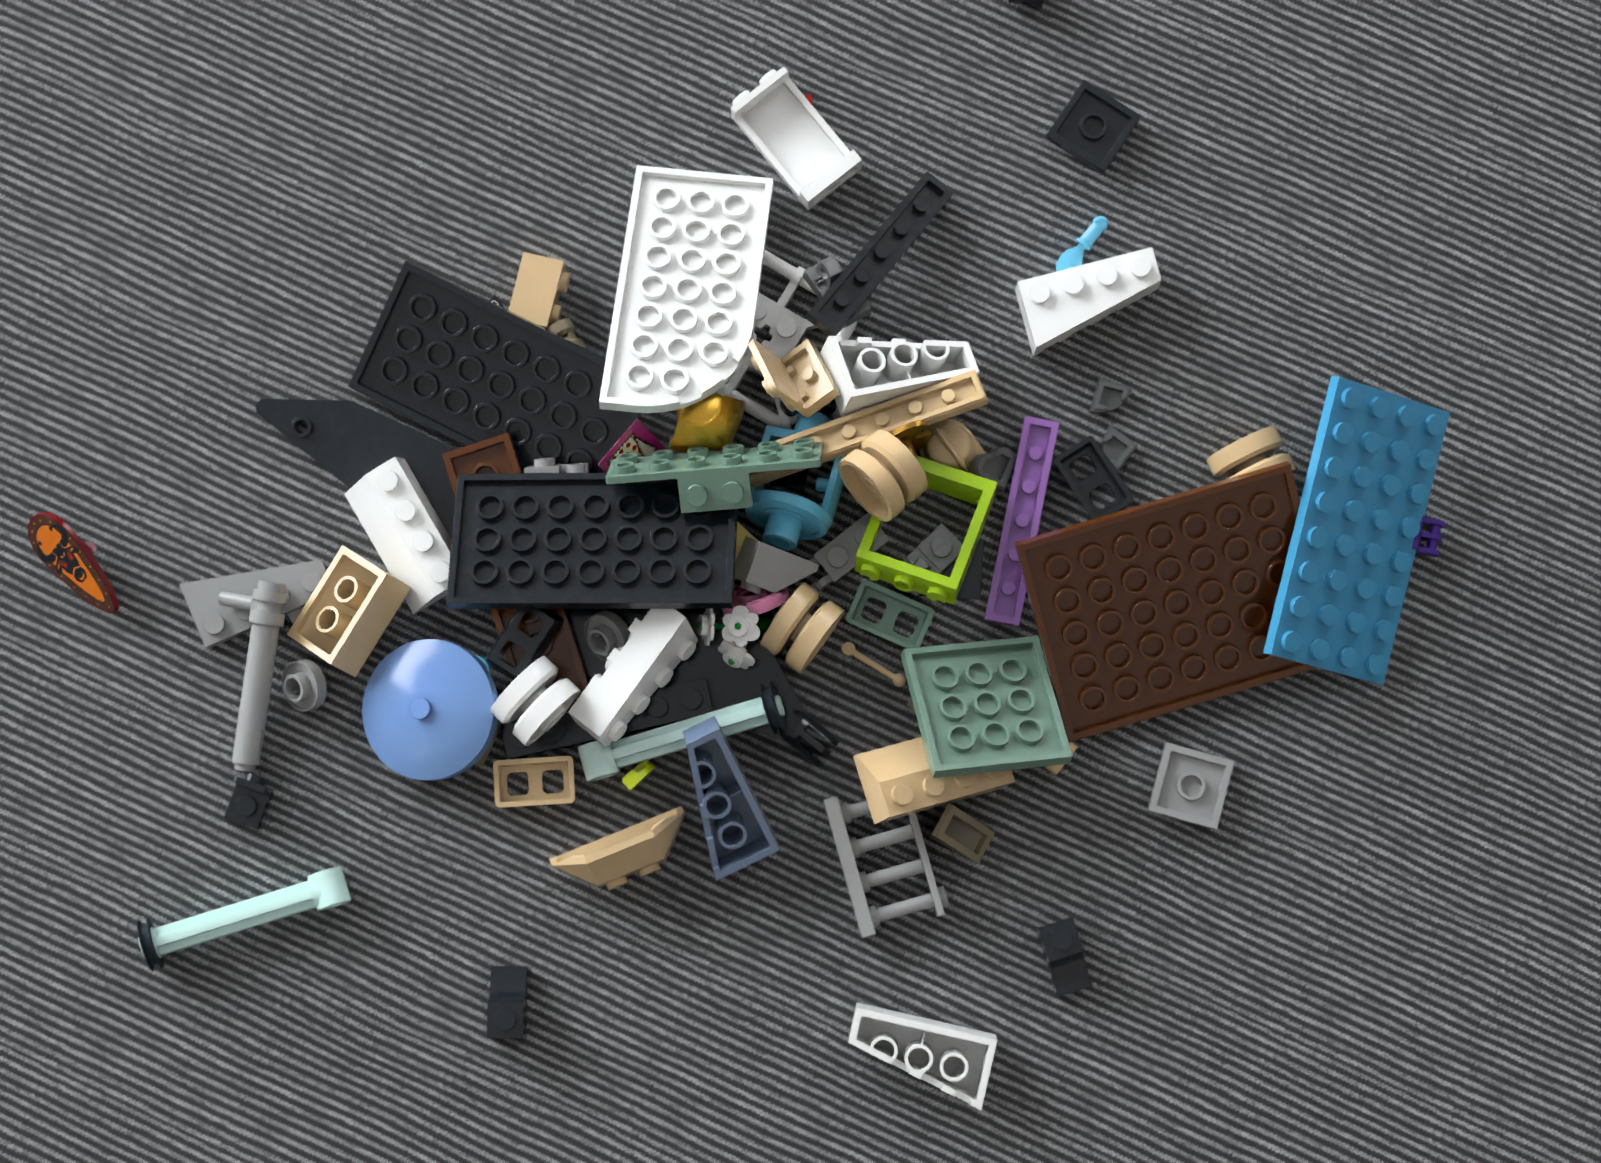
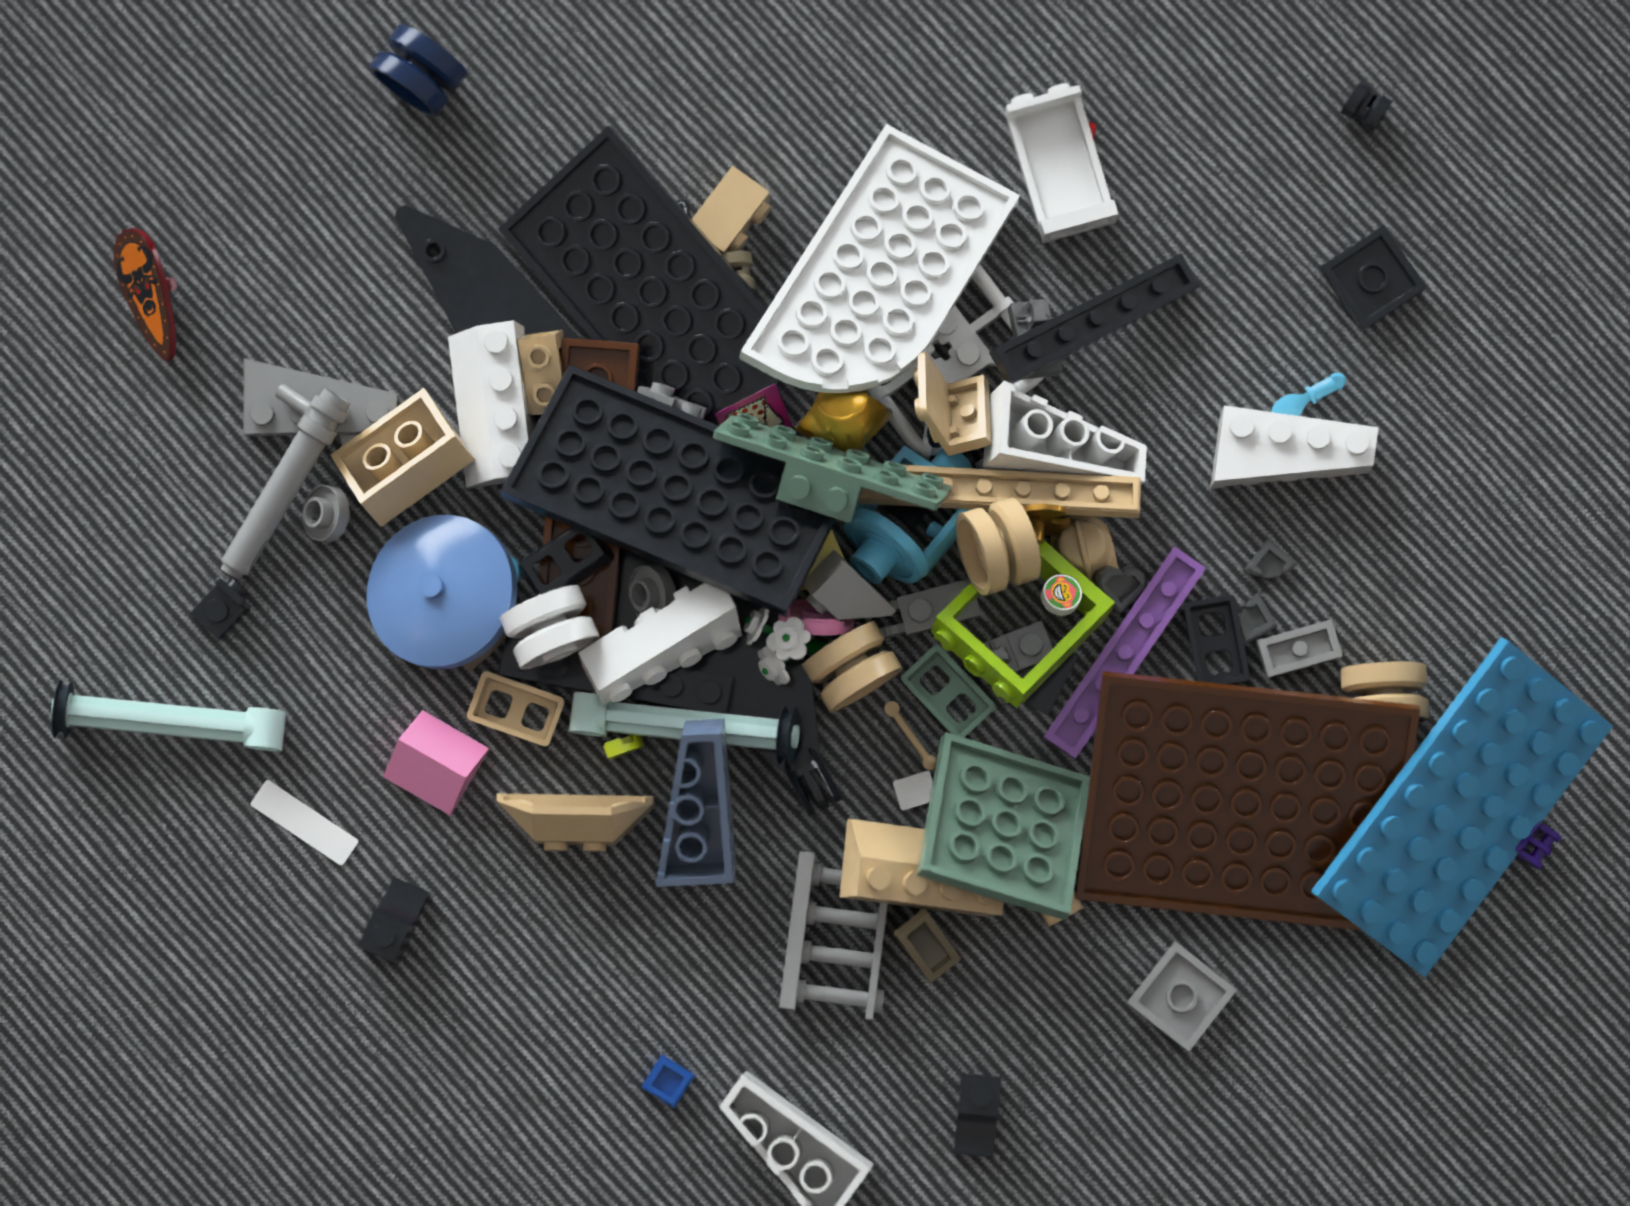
camera: 25 degrees right, 0 degrees up
(224, 281) = (418, 70): none -> dark blue wheel
(395, 952) = (304, 822): none -> white sticker
(434, 487) = (540, 367): none -> tan bracket
(485, 855) = (435, 762): none -> bright pink slope
(794, 1039) = (668, 1081): none -> blue tile
(896, 708) = (913, 790): none -> white sticker
(950, 494) = (1061, 594): none -> tile
(1164, 457) = (1299, 649): none -> light grey plate

